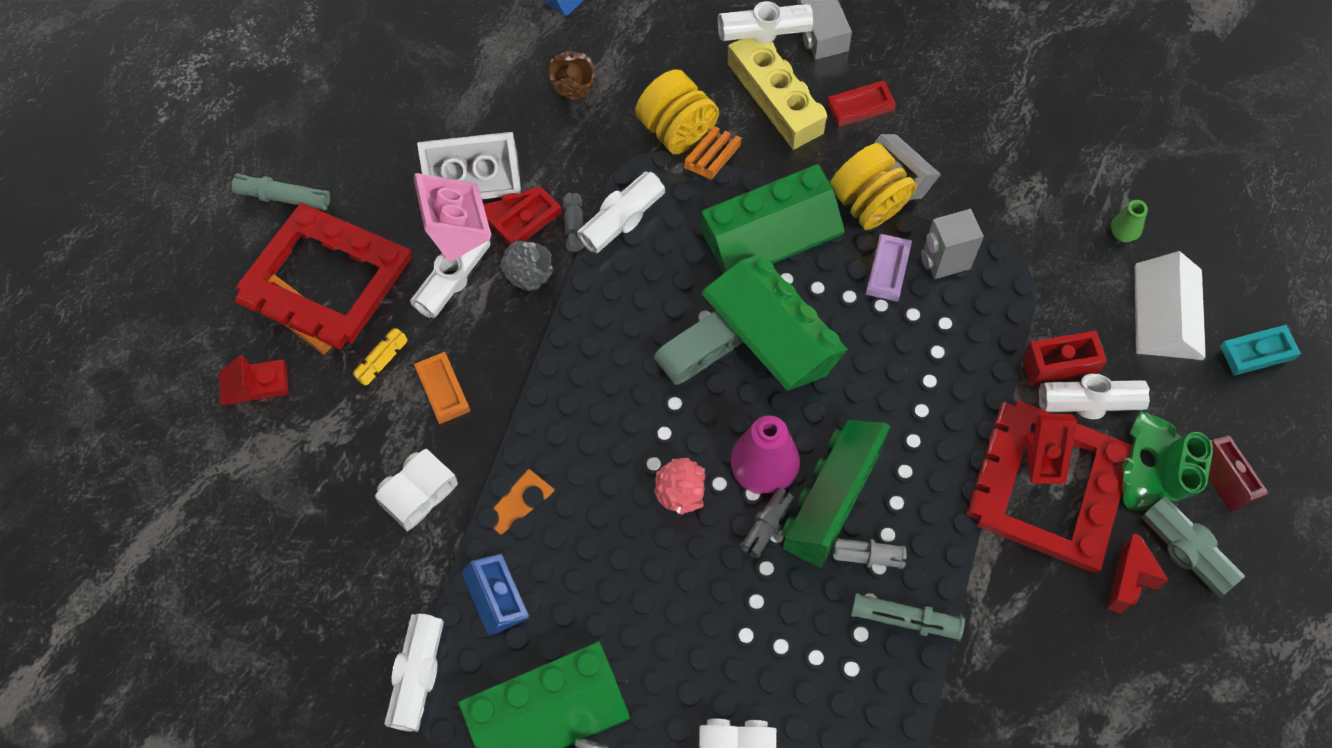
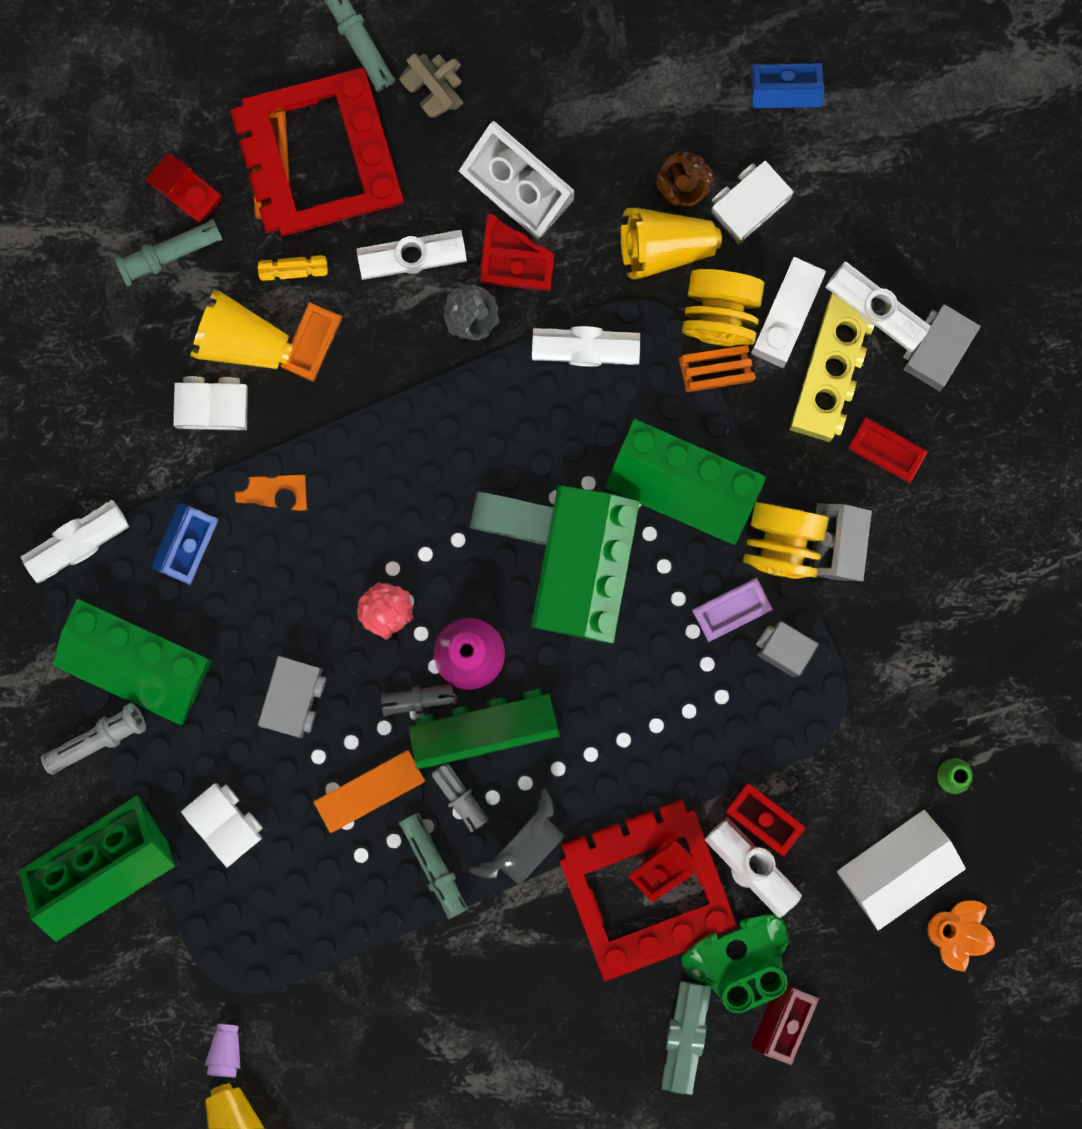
camera: 50 degrees right, 20 degrees up
(276, 440) = (151, 258): none -> sand green pin
(342, 170) = (424, 72): none -> dark tan hips
(388, 423) = (239, 336): none -> yellow cone
(452, 214) = (455, 213): bright pink slope -> none
(573, 221) = (549, 308): dark grey axle -> none
(596, 117) = (665, 241): none -> yellow cone
(623, 54) = (751, 201): none -> white brick
(684, 610) = (291, 697): none -> light grey brick
(721, 88) = (788, 312): none -> white slope
(807, 618) = (369, 791): none -> orange tile
(949, 527) = (527, 847): none -> dark grey piece
(1134, 569) = (629, 1003): red slope -> none
(1249, 306) = (966, 934): none -> orange plate
(1260, 350) = (921, 970): teal plate -> none

